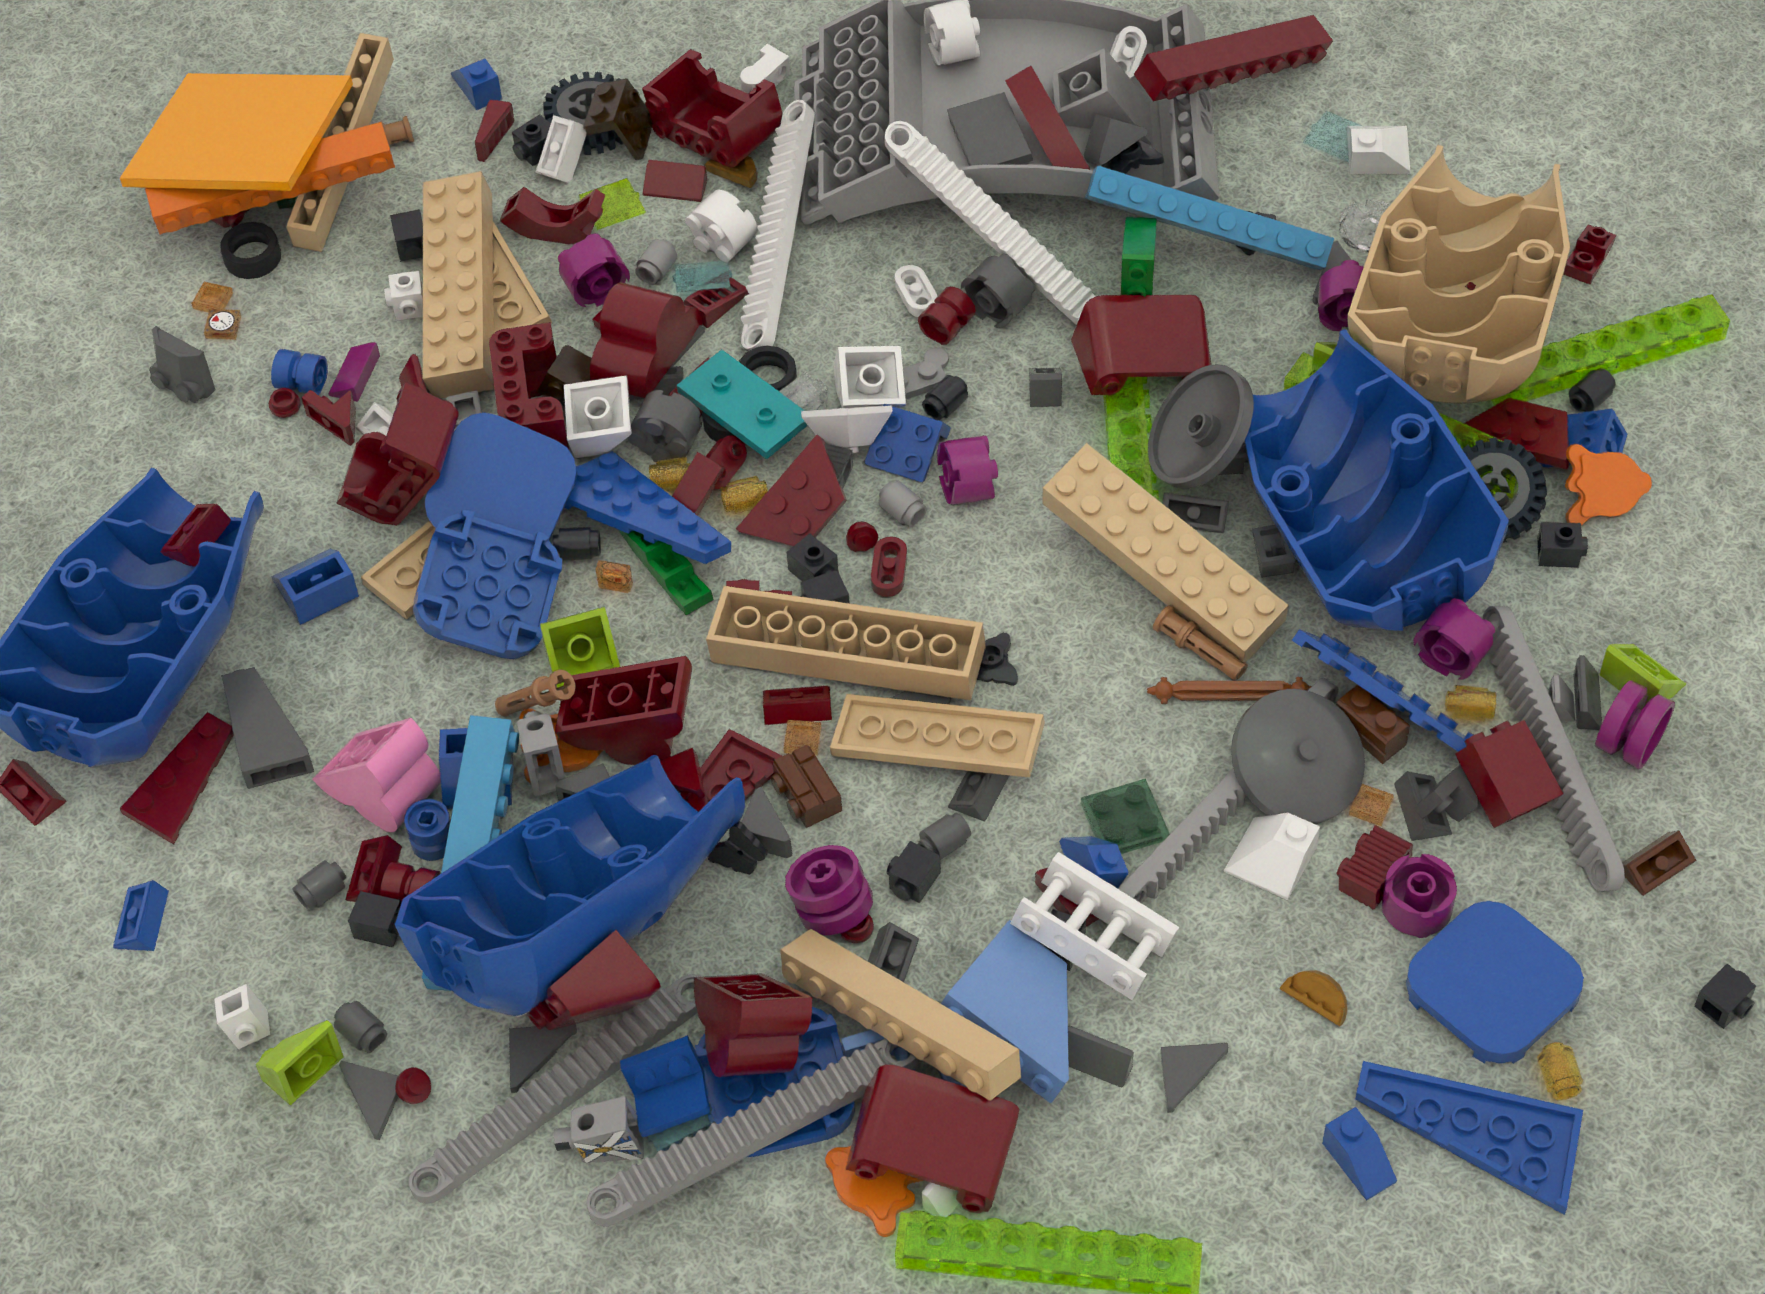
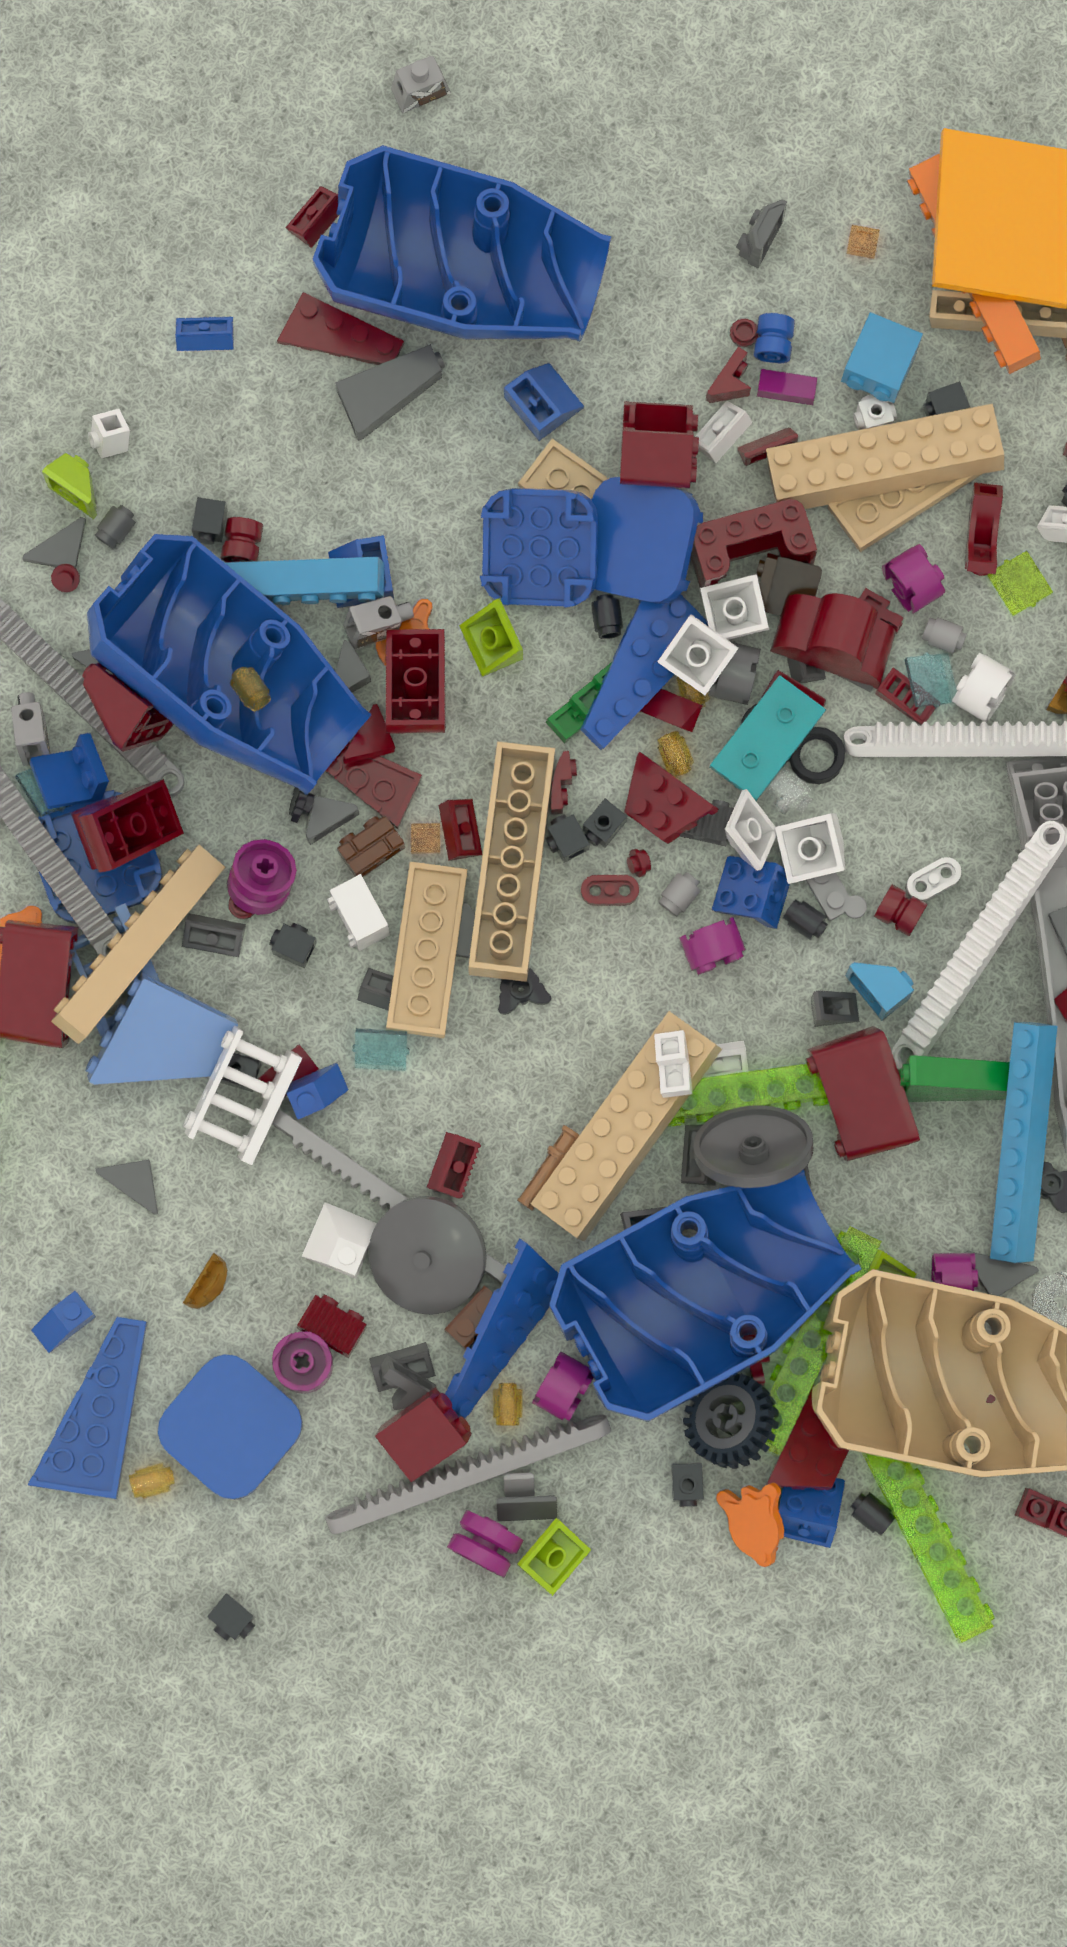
camera: 80 degrees right, 25 degrees up
(202, 525) = (553, 291): dark red slope -> none
(222, 324) = (832, 257): tile -> none
(255, 266) = (904, 279): black tyre -> none
(319, 884) = (241, 468): dark grey brick -> none
(347, 270) = (882, 358): none -> dark azure slope
(371, 865) = (265, 507): dark red slope -> none
(382, 773) = (342, 492): bright pink brick -> none
(428, 828) = (296, 542): blue wheel -> none
(466, 404) = (755, 492): light grey slope -> none
(513, 701) = (425, 613): medium nougat pin -> none
(593, 852) = (250, 688): none -> clear yellow brick
(614, 576) = (573, 653): clear orange tile -> none
(642, 436) = (697, 654): none -> white slope
(675, 180) = (1049, 637): dark red slope -> none
(723, 455) = (710, 727): dark red plate -> none
(886, 793) = (358, 913): none -> white container
(945, 835) = (331, 966): dark grey brick -> none
(998, 289) = (928, 953): dark grey brick -> none
(1032, 331) = (881, 986): none -> dark azure slope
(1049, 790) = (380, 1049): none -> clear light blue piece
(1099, 1057) = (135, 1108): dark grey slope -> none
(1104, 480) = (673, 1064): none -> white slope
(1126, 816) = (367, 1116): clear green plate -> none
(1193, 727) = (453, 1165): none -> dark red brick
(1220, 690) = (505, 1194): dark orange wheel -> none
(1371, 805) = (399, 1323): clear orange tile -> none
(1658, 862) = (363, 1564): reddish brown slope -> none

